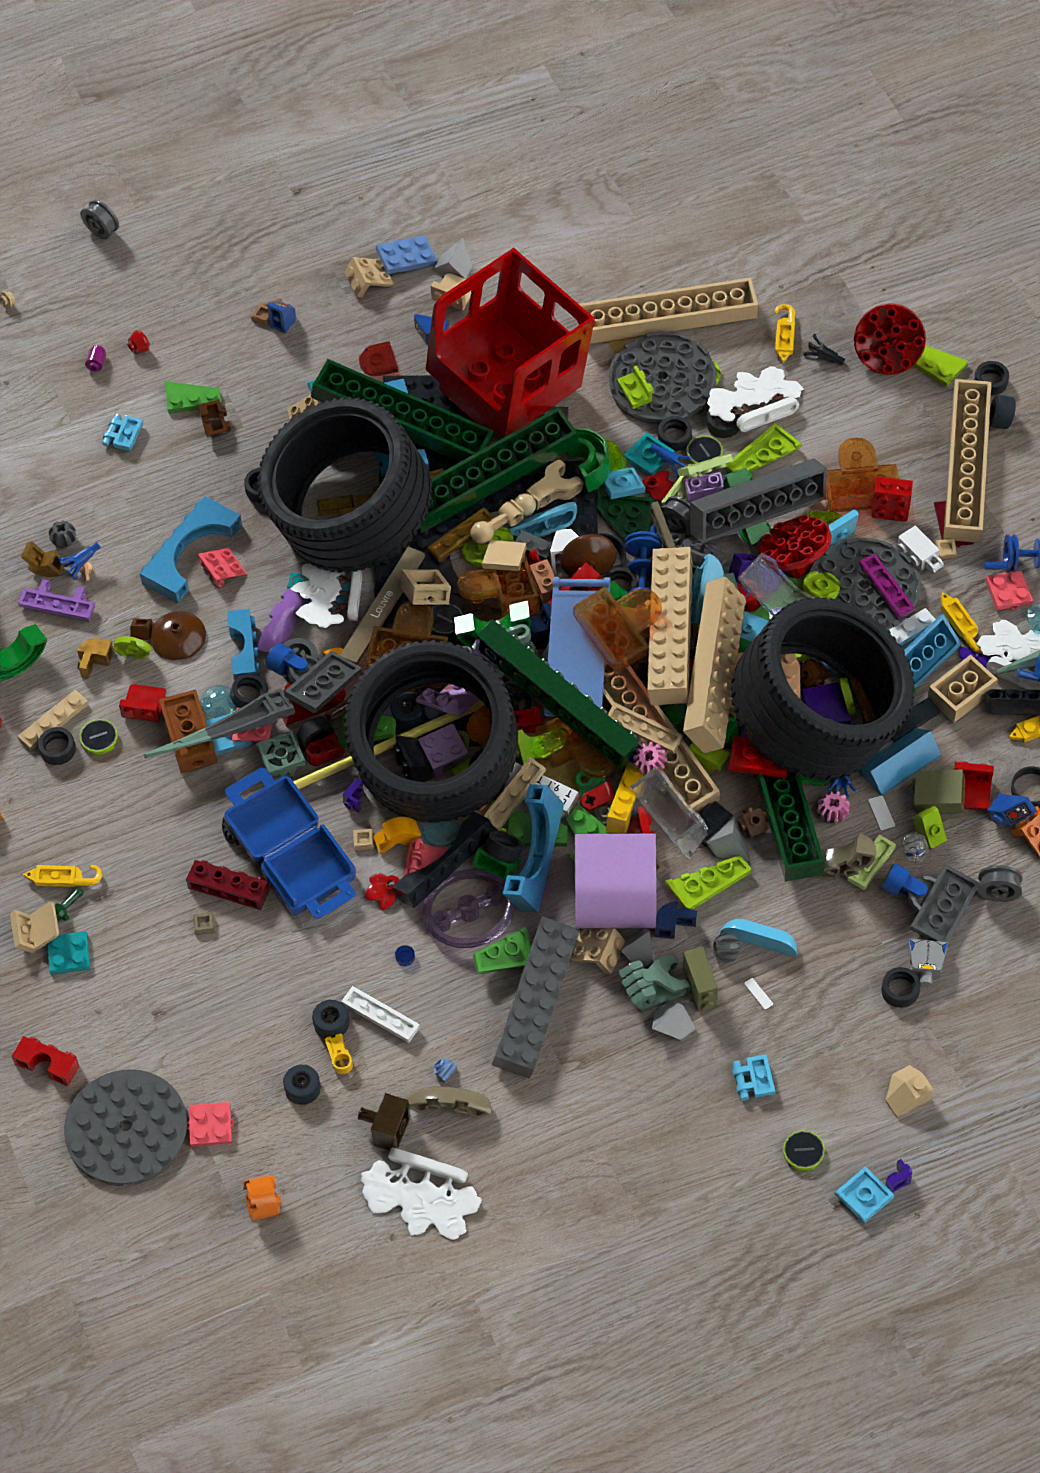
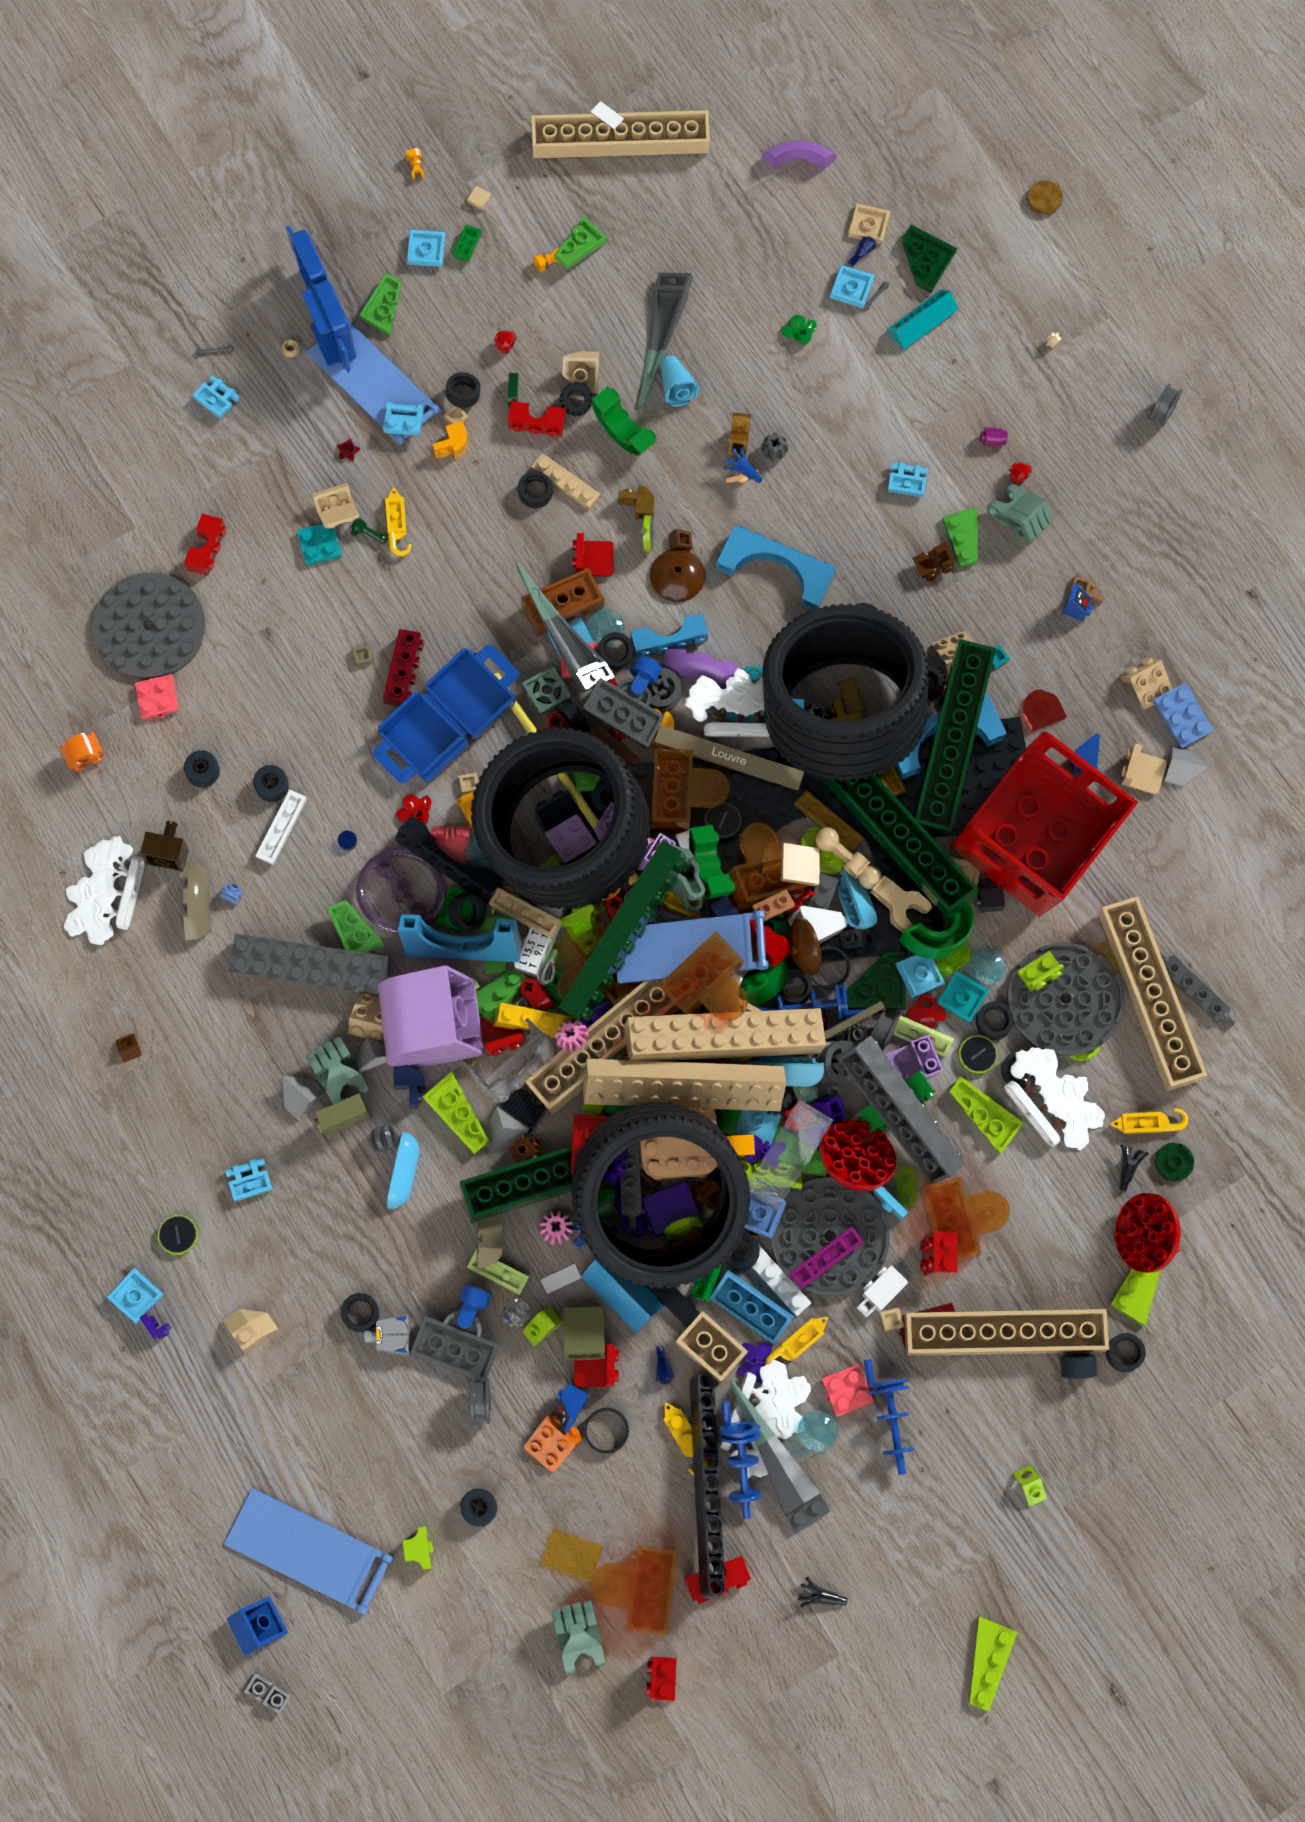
camera: 75 degrees right, 15 degrees up
(44, 601) = (696, 445): medium lavender hinge -> none
(98, 736) = (552, 525): black tile -> none
(180, 344) = (1023, 513): none -> sand green piece
(221, 565) = (762, 600): coral hinge -> none
(338, 1052) = (240, 795): yellow piece -> none
(431, 584) = (737, 804): tan window -> none
(568, 782) = (550, 962): none -> light grey piece
(596, 1183) = (128, 1048): none -> reddish brown slope
(622, 432) = (987, 966): none -> clear light blue dish
(646, 728) = (605, 1024): tan plate -> none
(669, 457) = (957, 1018): blue piece -> none
(673, 278) = (1197, 990): none -> dark grey plate
(705, 466) = (950, 1054): yellowish green plate -> none
(758, 993) = (343, 1176): white sticker -> none
(821, 585) = (815, 1190): lime tile -> none
(822, 321) = (1174, 1162): none -> dark green tile
(979, 733) = (663, 1370): none -> clear blue cone

